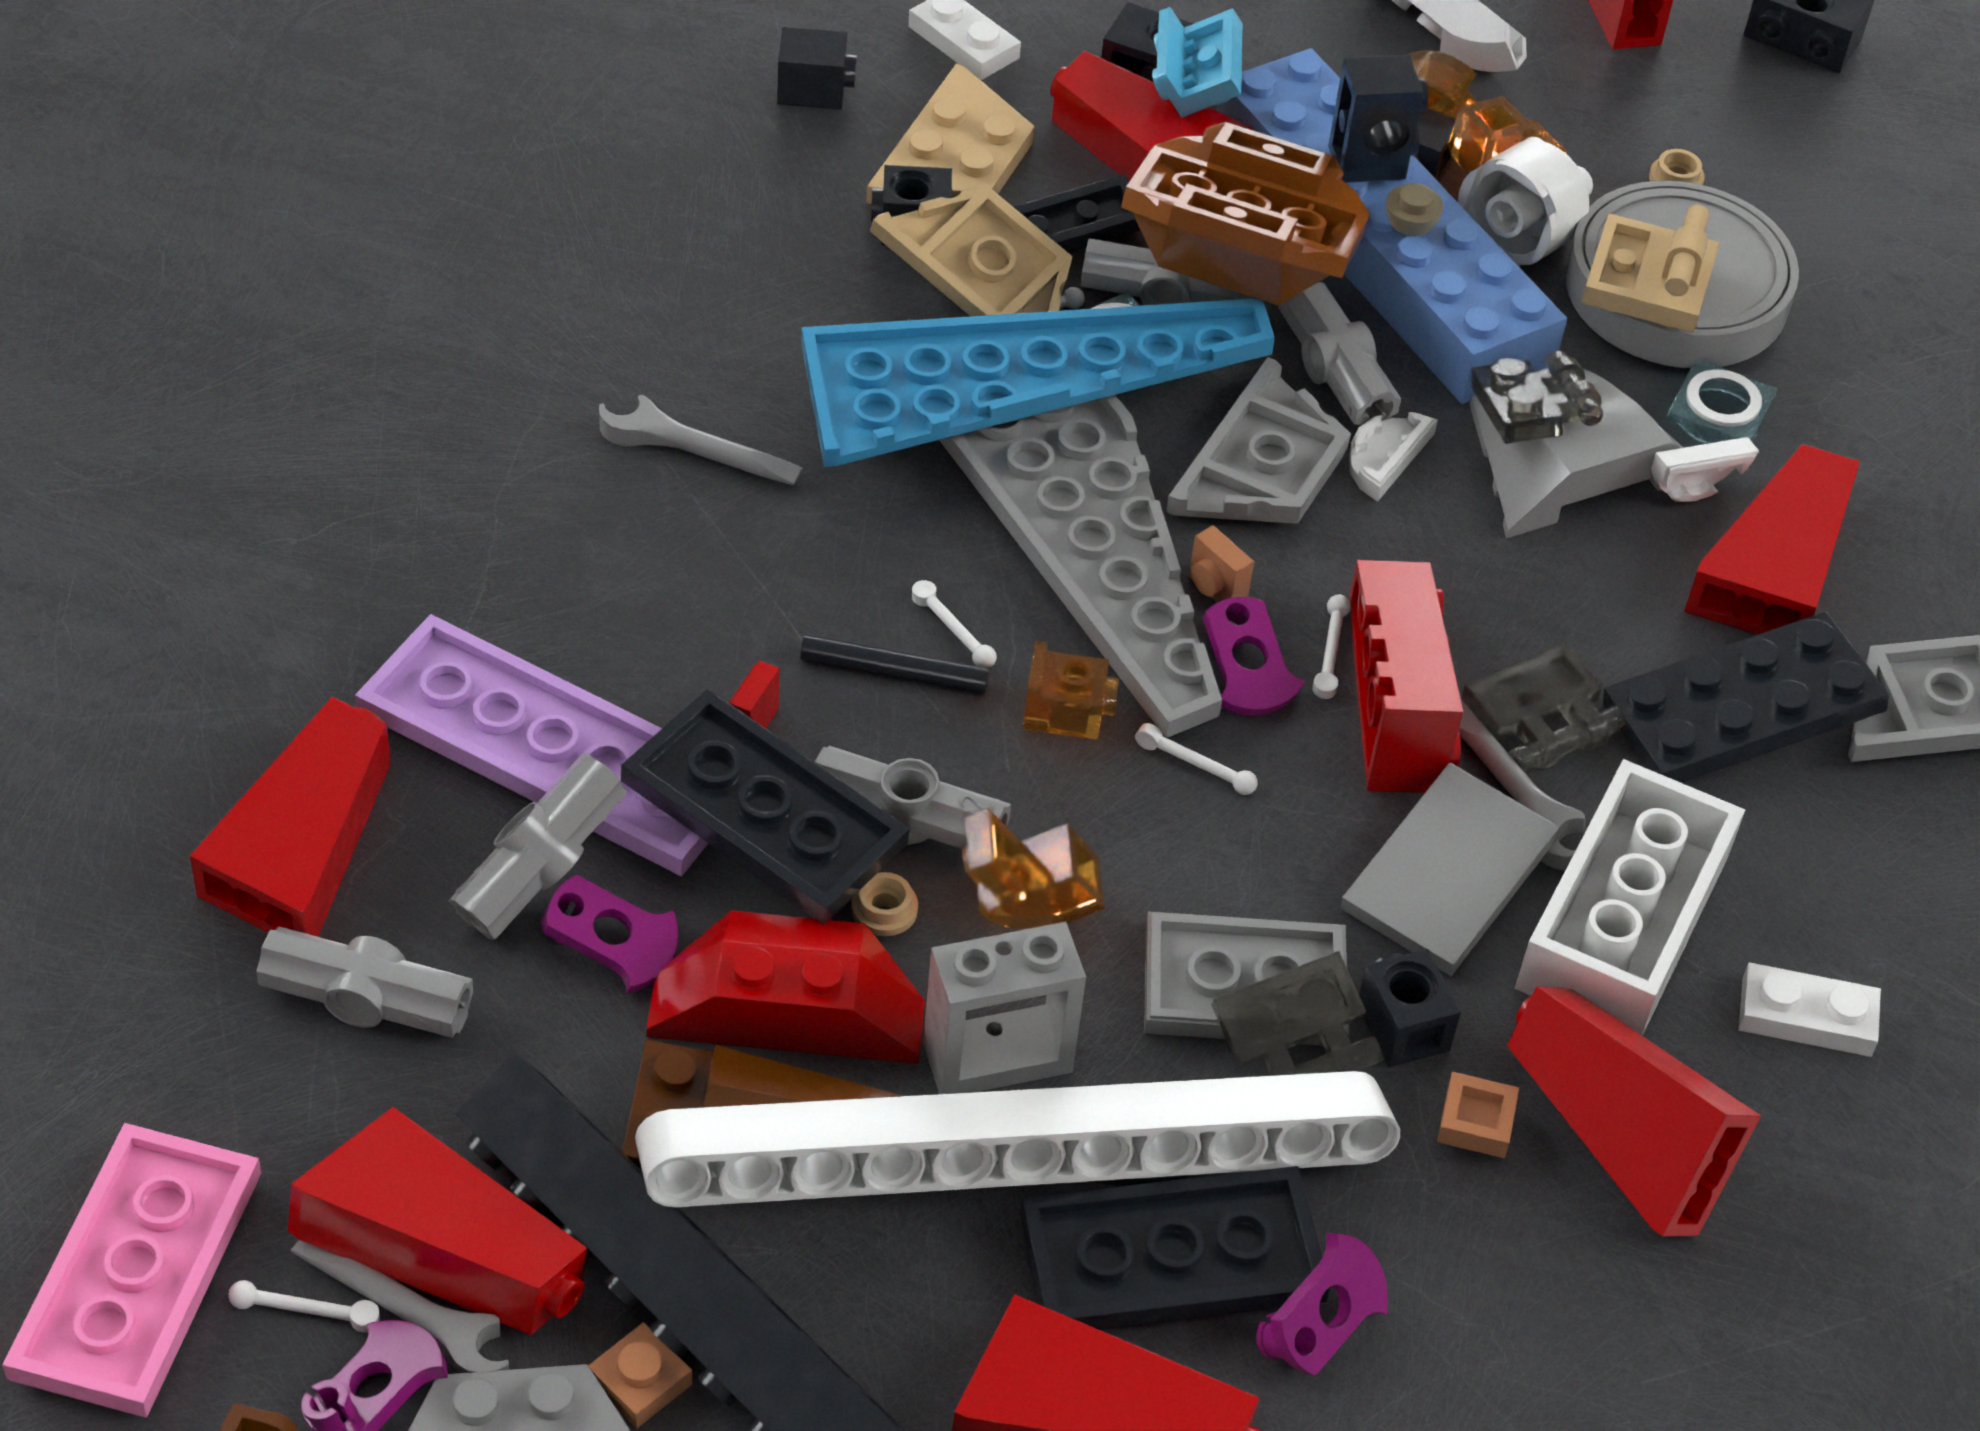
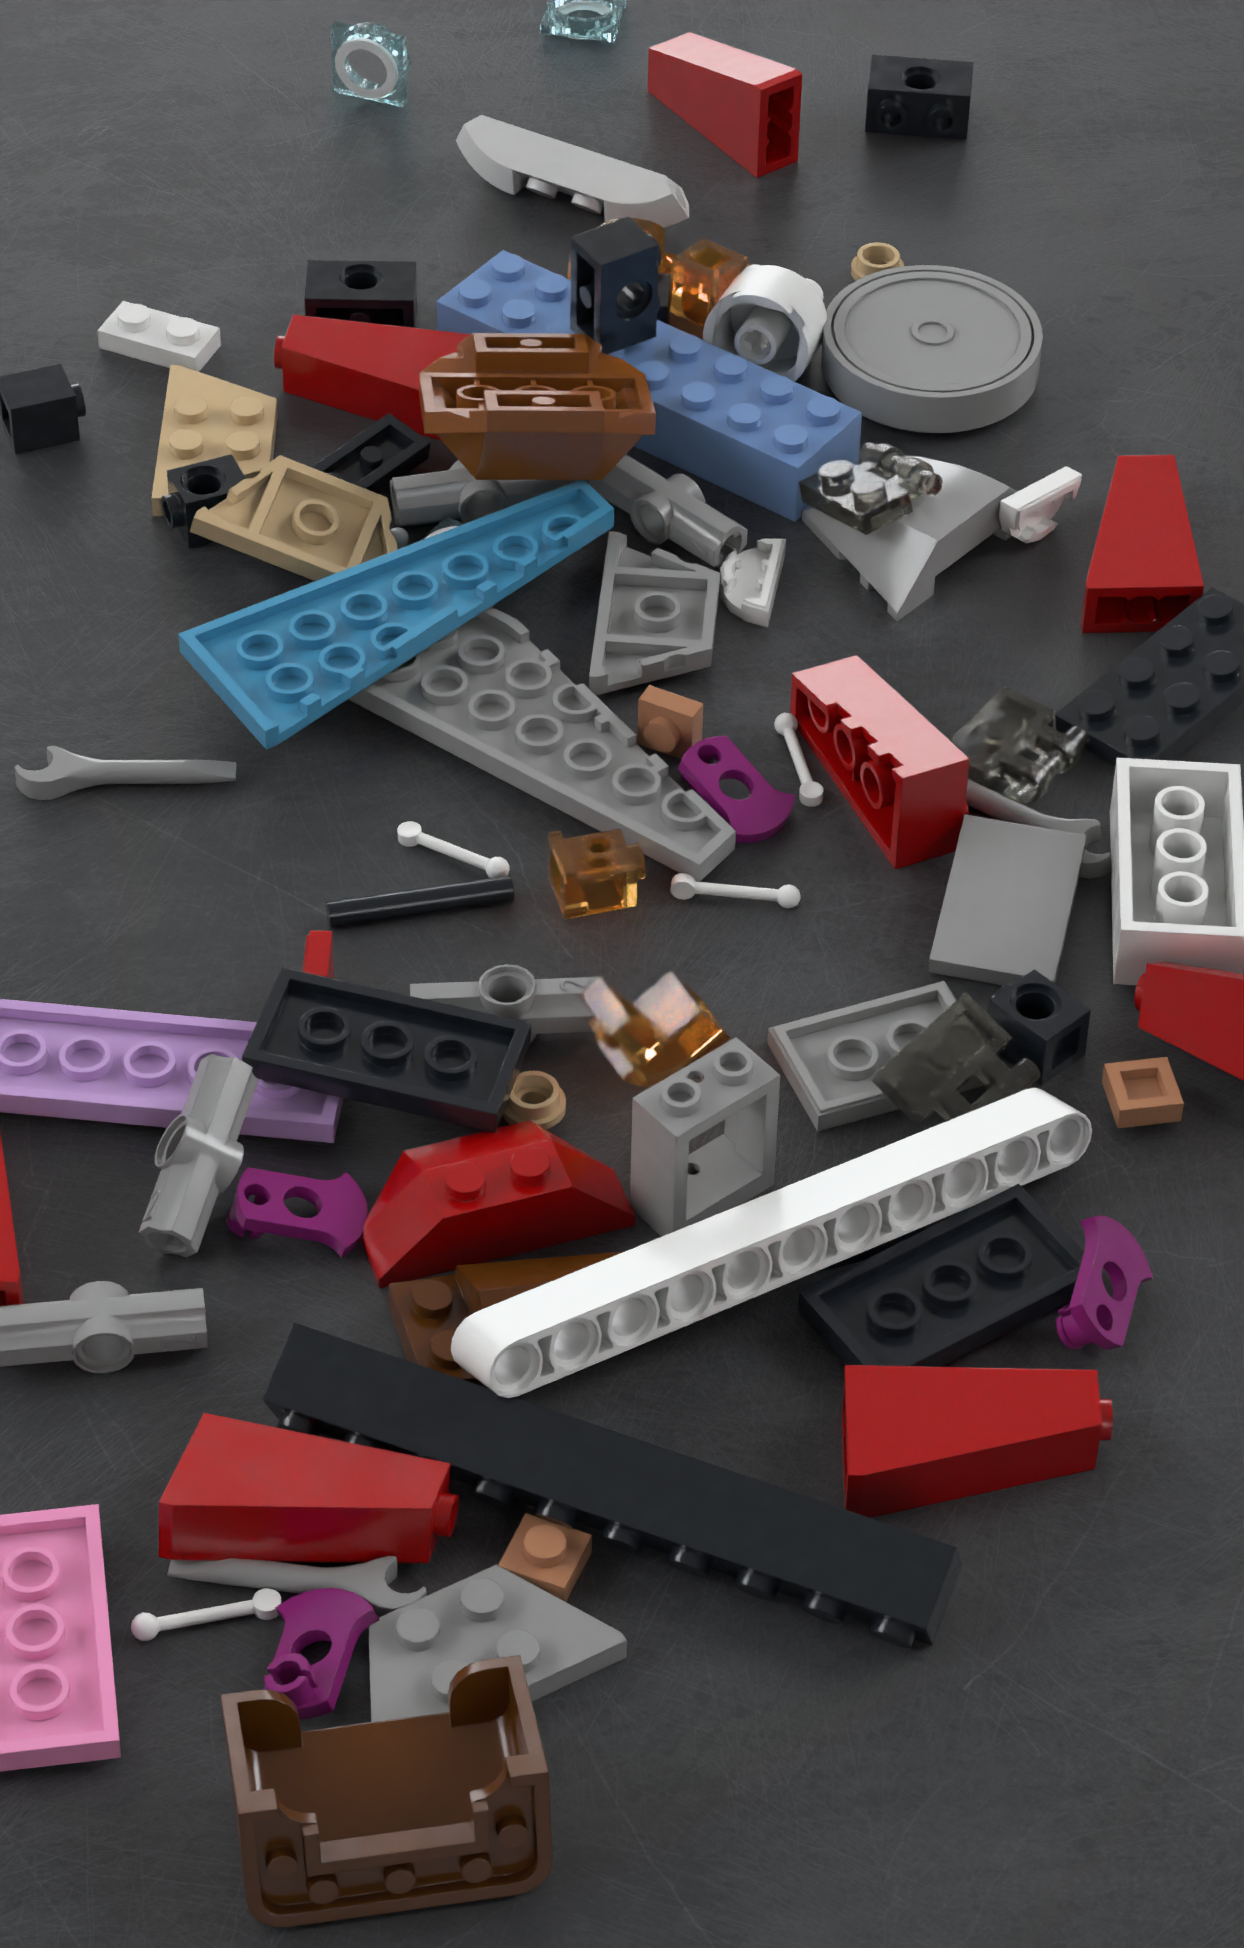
camera: 20 degrees left, 5 degrees down
(1199, 62) = (413, 288): medium azure bracket -> none
(1413, 209) = (681, 358): dark tan plate -> none
(1653, 269) = (916, 347): tan plate -> none
(1709, 425) = (1015, 469): clear light blue piece -> none

